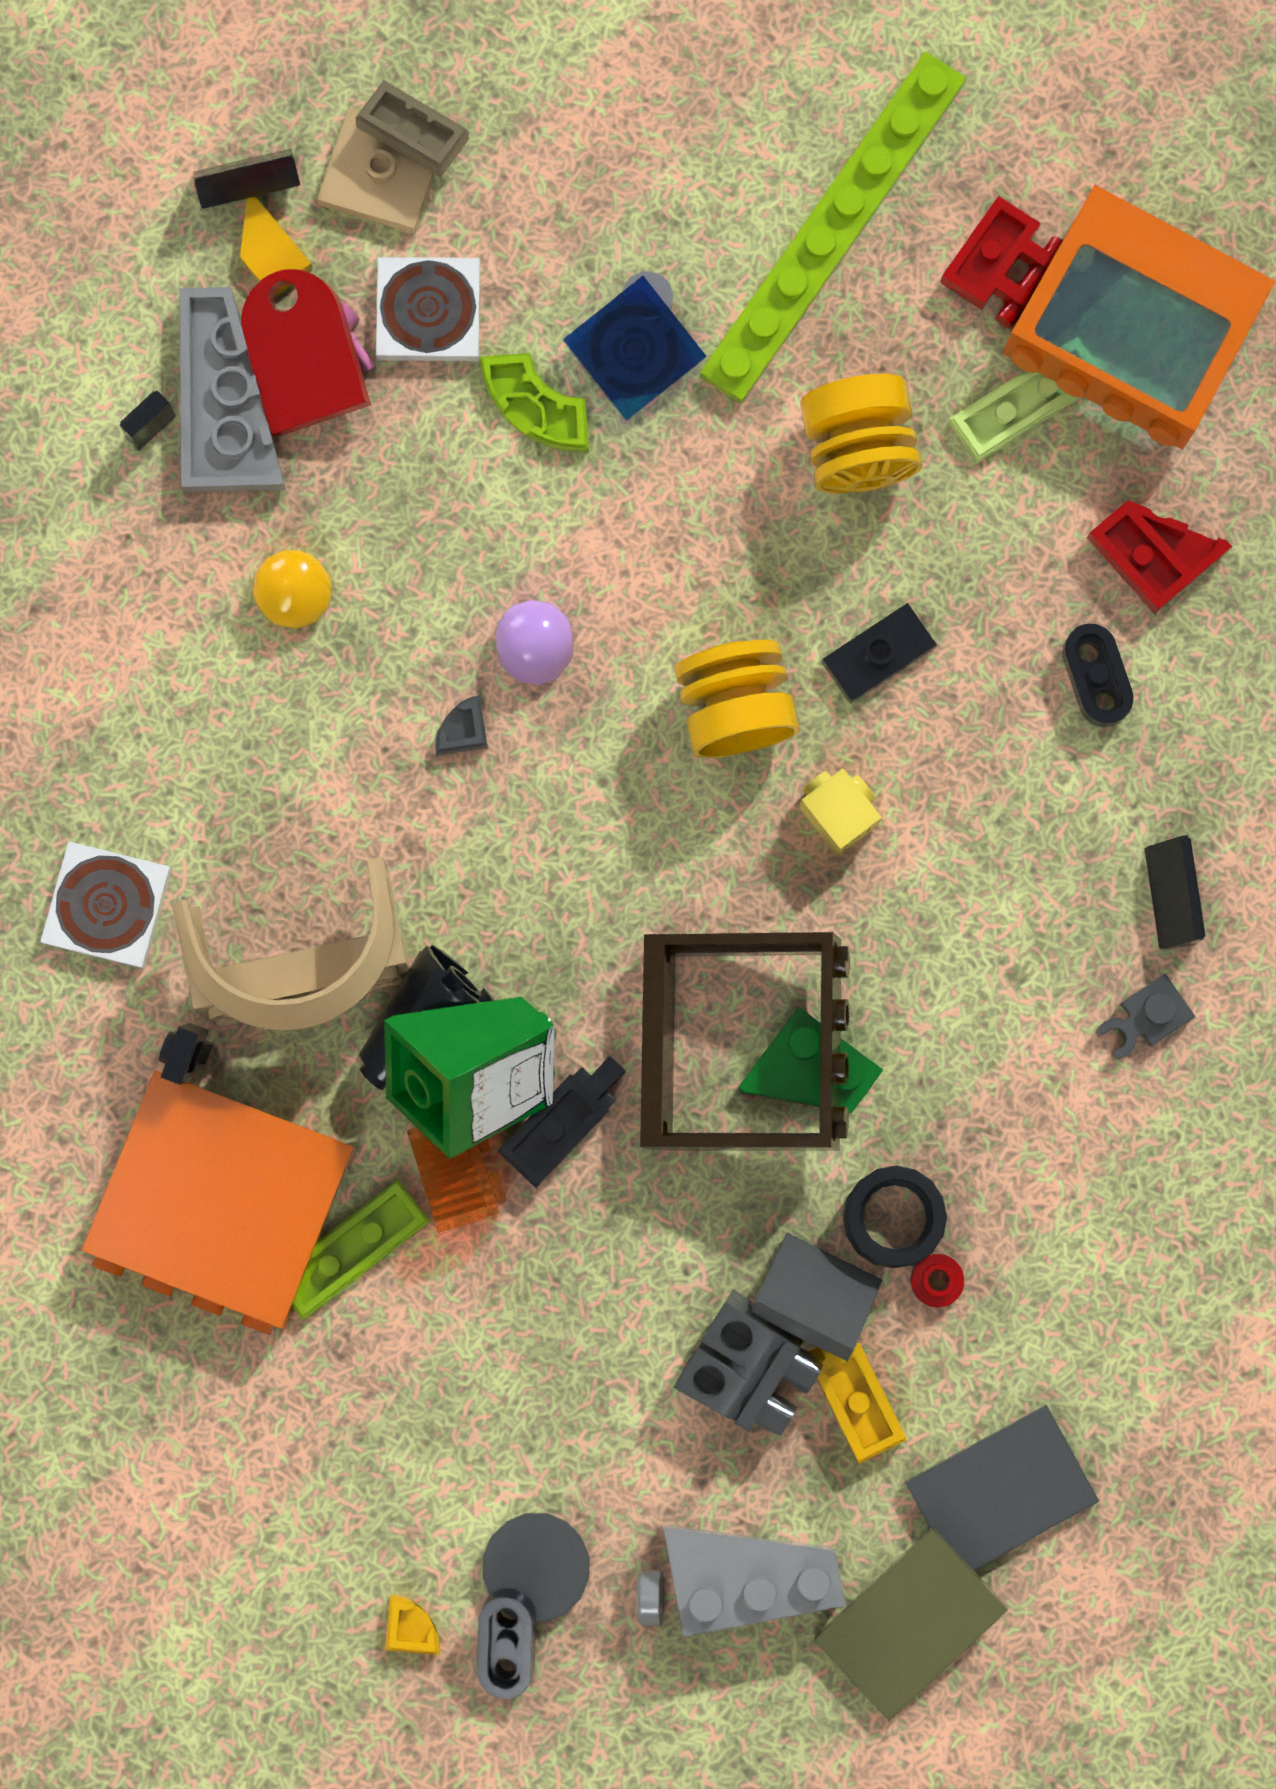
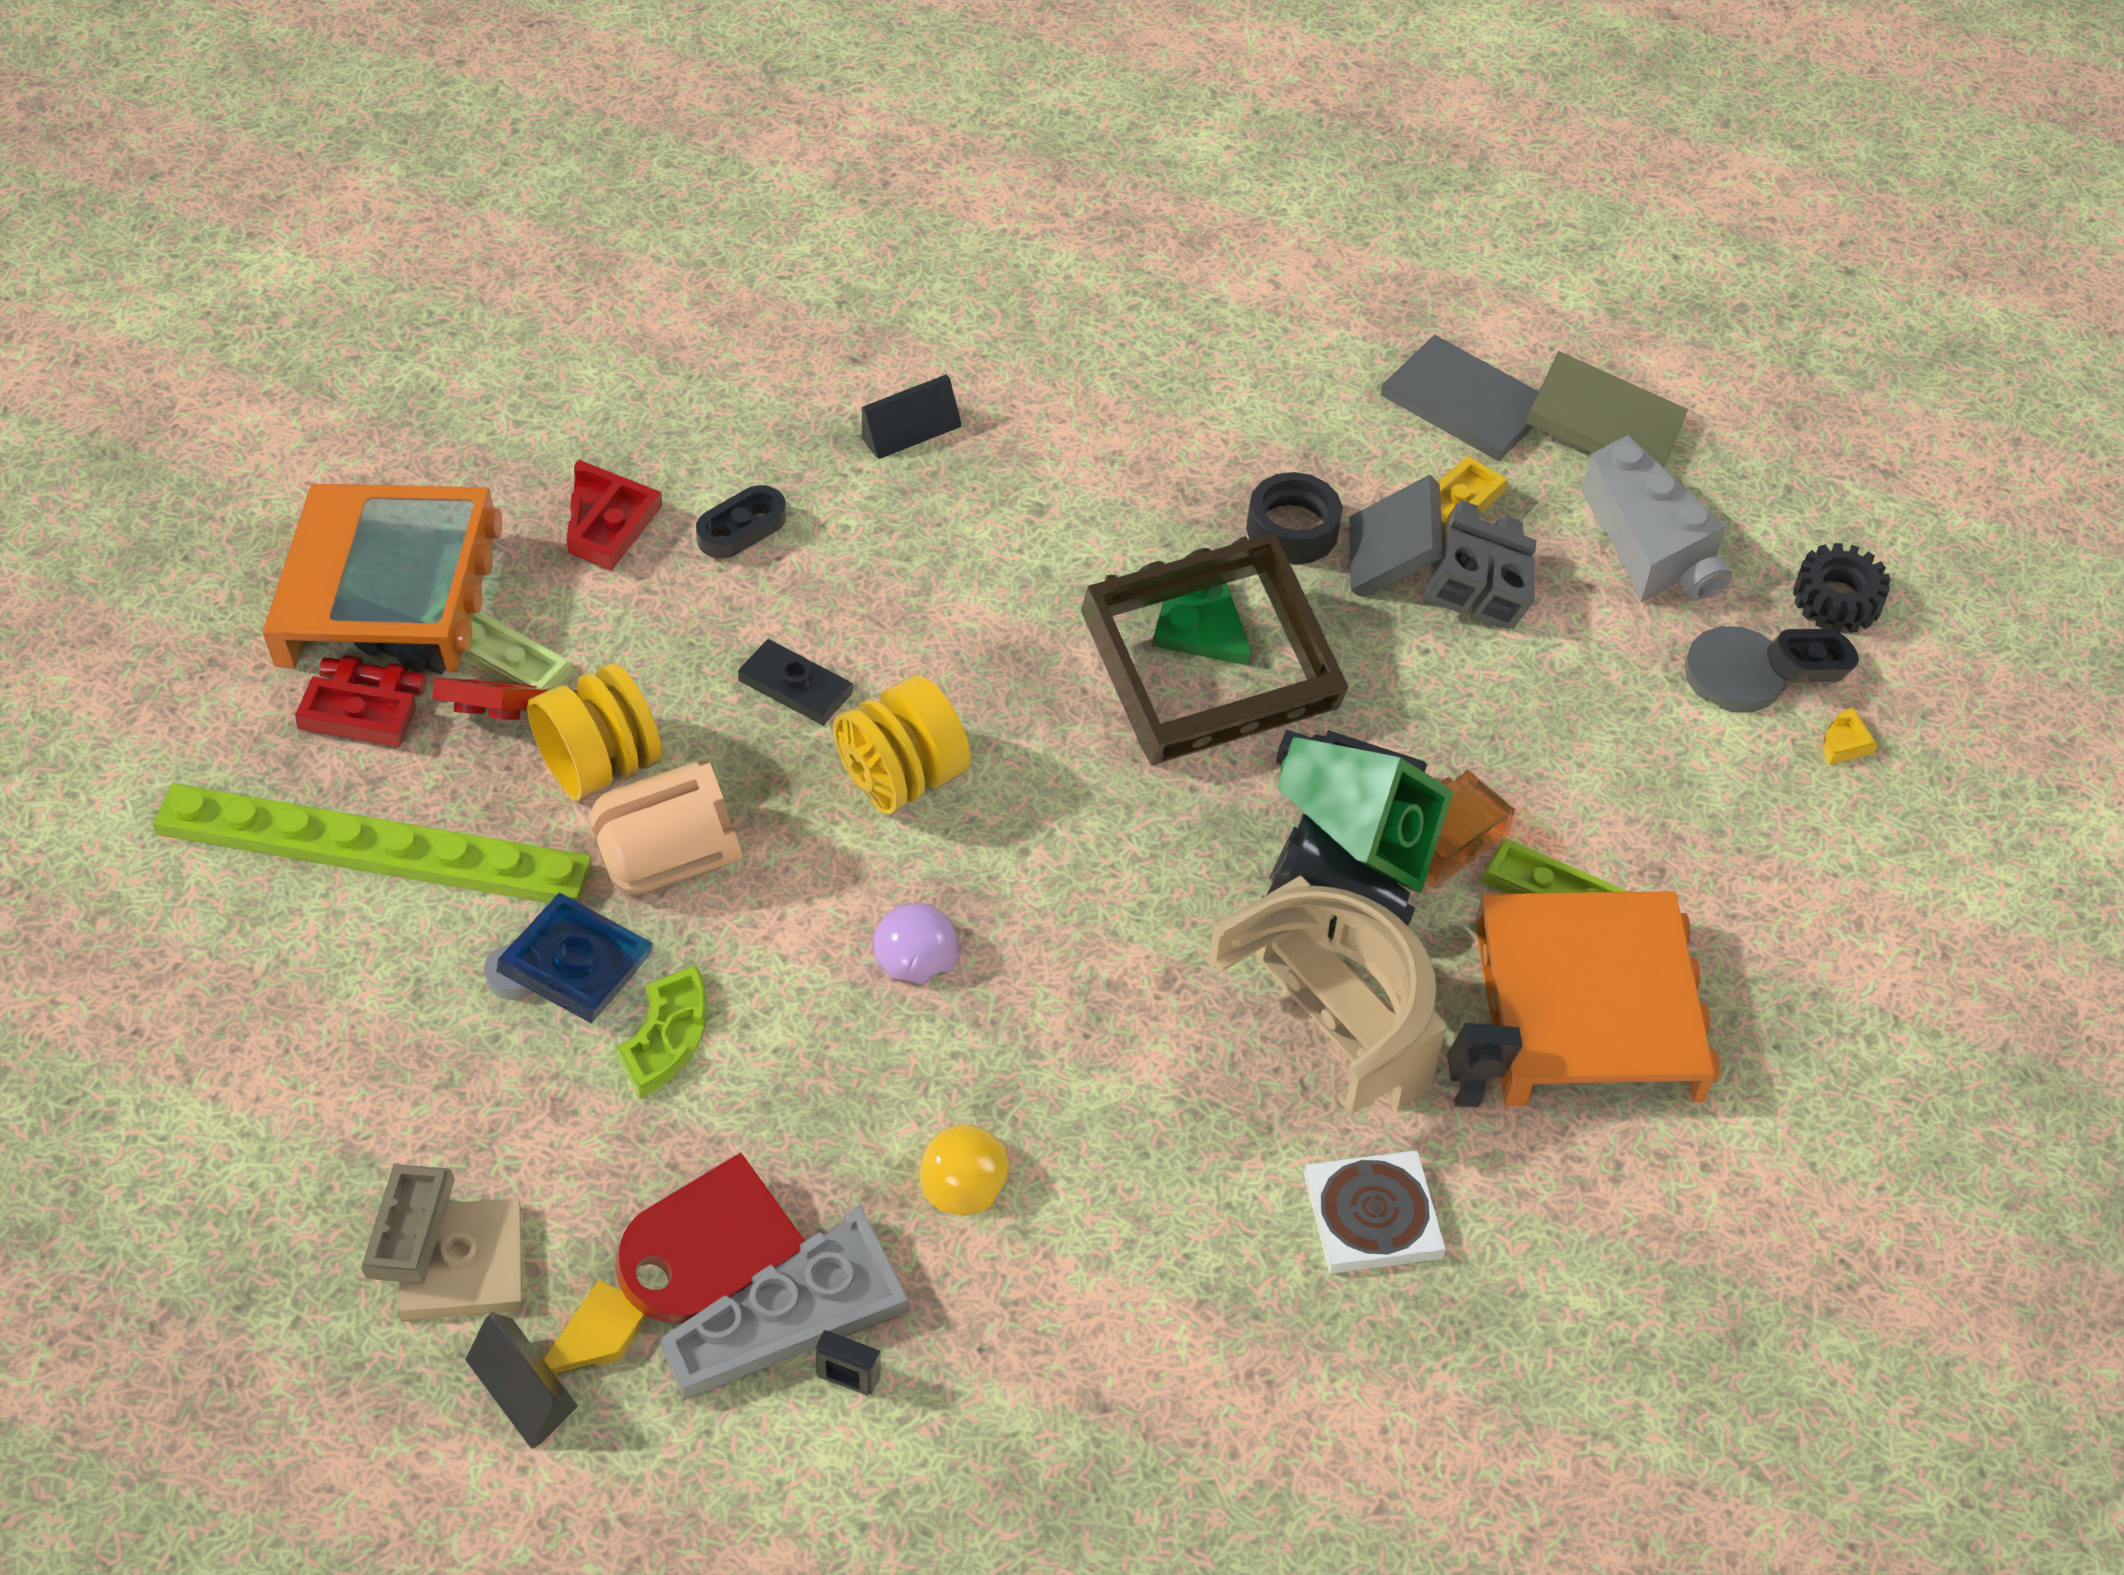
camera: 115 degrees left, 30 degrees down
(428, 309) = (603, 1158): tile -> none
(462, 729) = (1033, 974): dark grey tile -> none
(585, 1769) = (1836, 607): none -> black tyre
(754, 491) = (664, 829): none -> light nougat cylinder
(839, 809) = (962, 654): light yellow brick -> none
(922, 1289) = (1333, 473): red plate -> none
(945, 374) = (476, 695): none -> red wing
(1151, 1013) = (1025, 411): dark grey plate -> none

